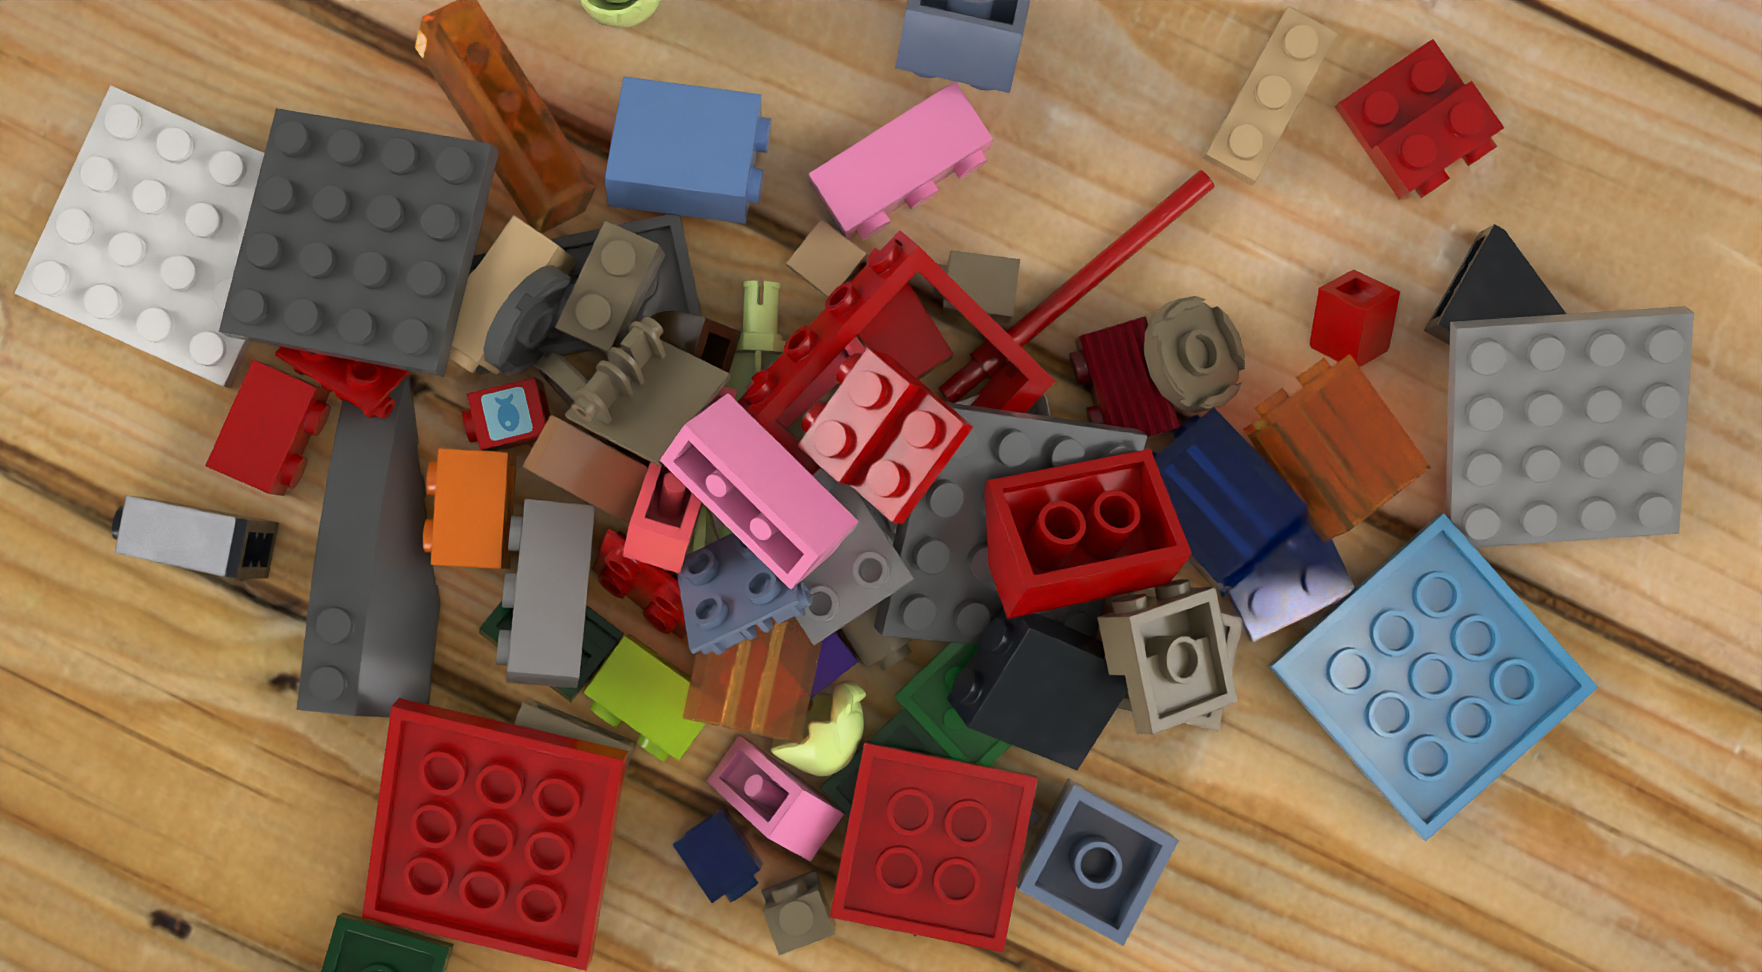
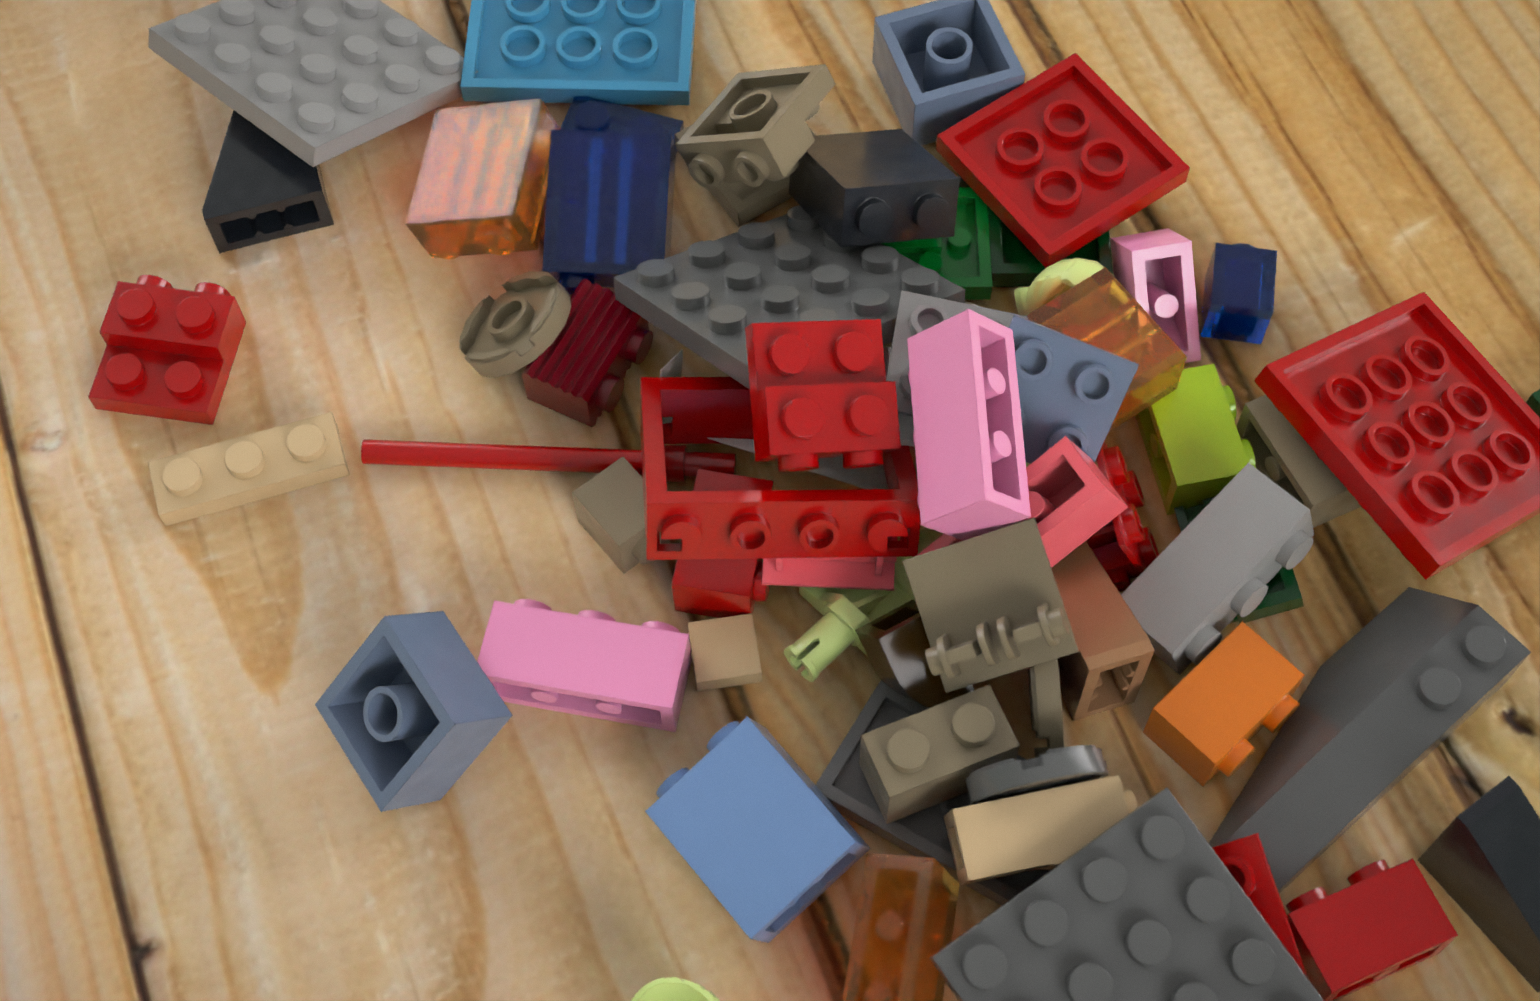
camera: 130 degrees left, 25 degrees down
(506, 415) = (1131, 745): brick -> none
(797, 912) = (1211, 203): dark tan brick -> none
(1081, 533) = (738, 228): red slope -> none
(1354, 318) = (372, 259): red panel -> none

